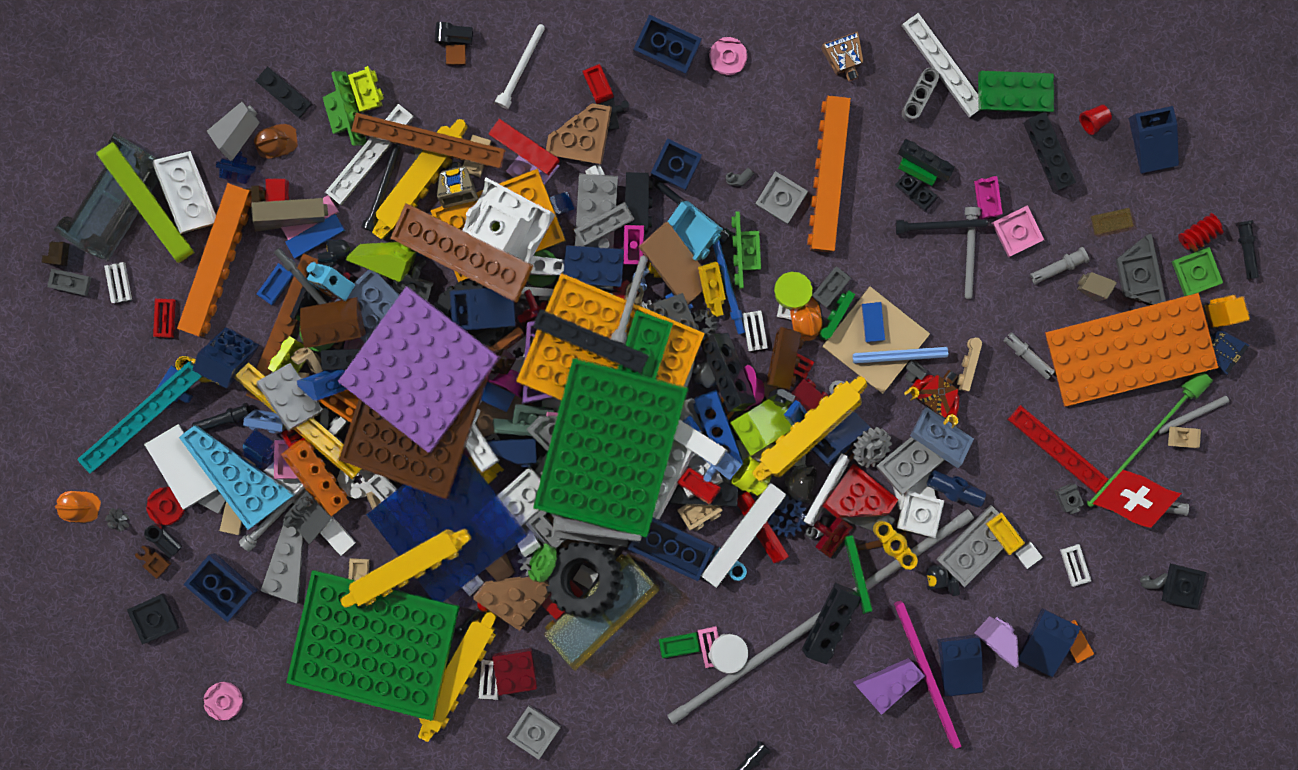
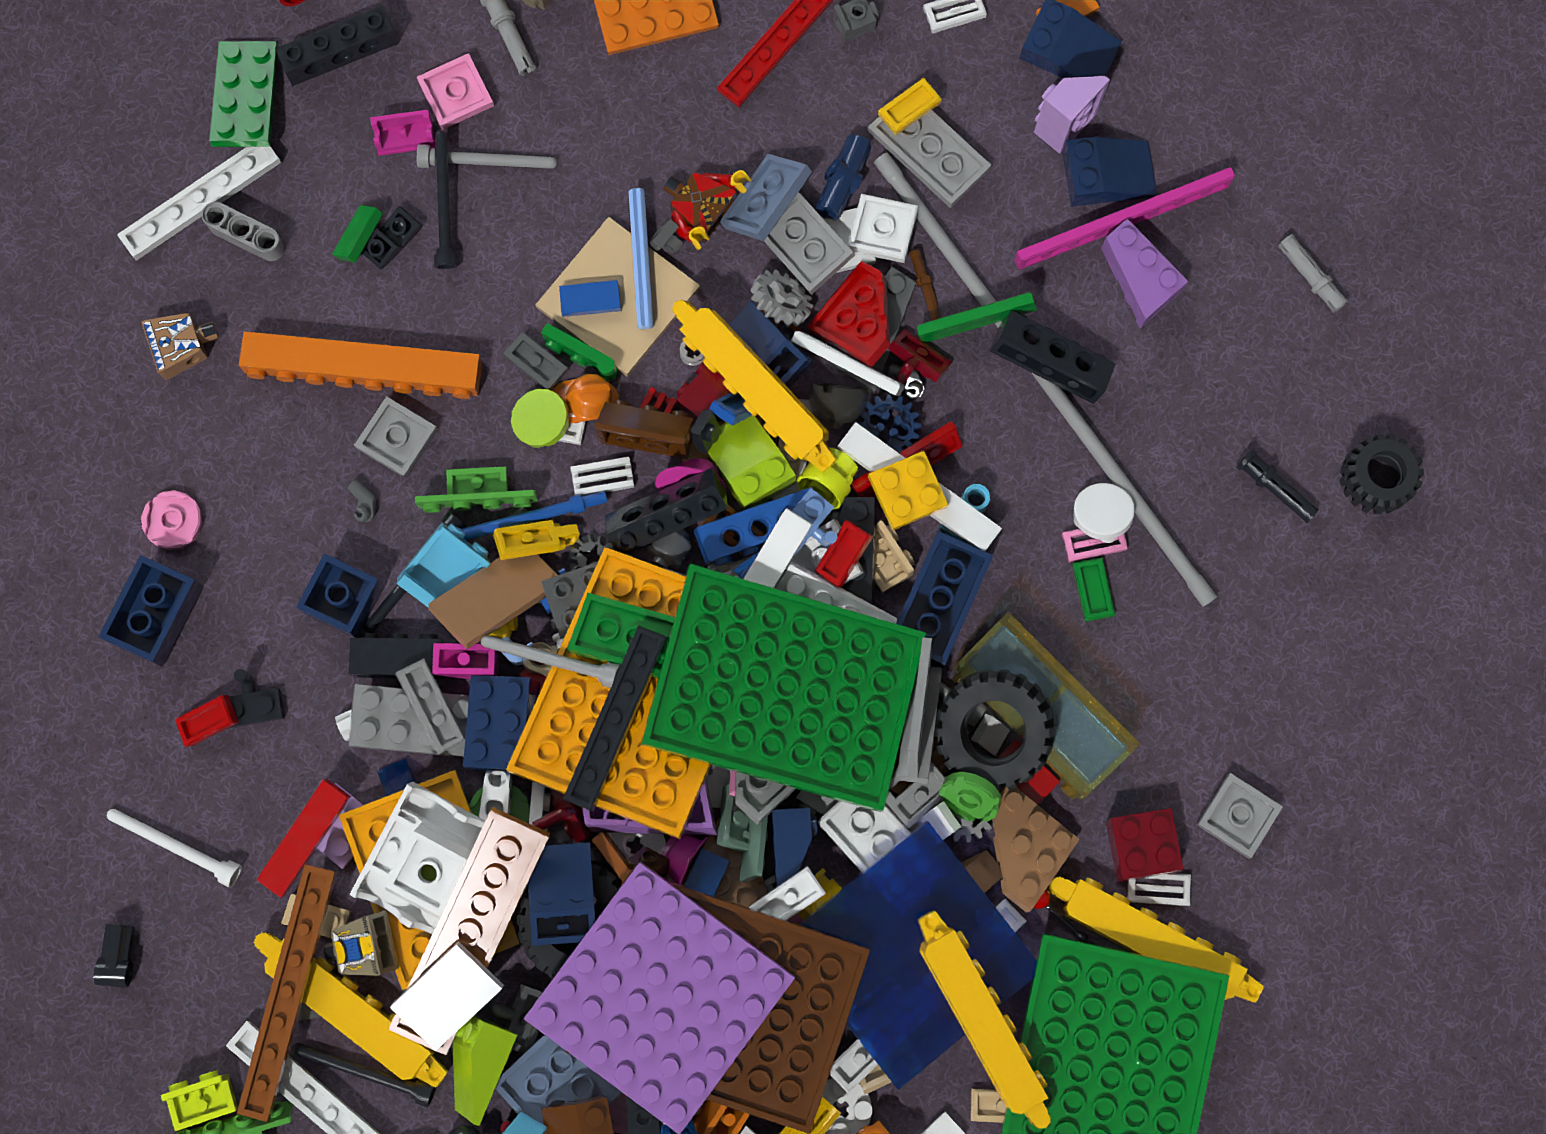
camera: 90 degrees left, 10 degrees down
(423, 238) = (447, 996): none -> white tile
(455, 55) = (150, 952): dark orange tile -> none
(582, 136) = (288, 743): medium nougat plate -> none
(740, 527) = (908, 490): none -> yellow plate
(899, 553) = (939, 253): yellow piece -> none
(926, 160) = (343, 222): black plate -> none
(939, 578) = (979, 201): black piece -> none
(969, 363) = (655, 158): tan plate -> none
(1028, 355) = (634, 84): light grey pin -> none
(1028, 555) = (941, 76): white tile -> none

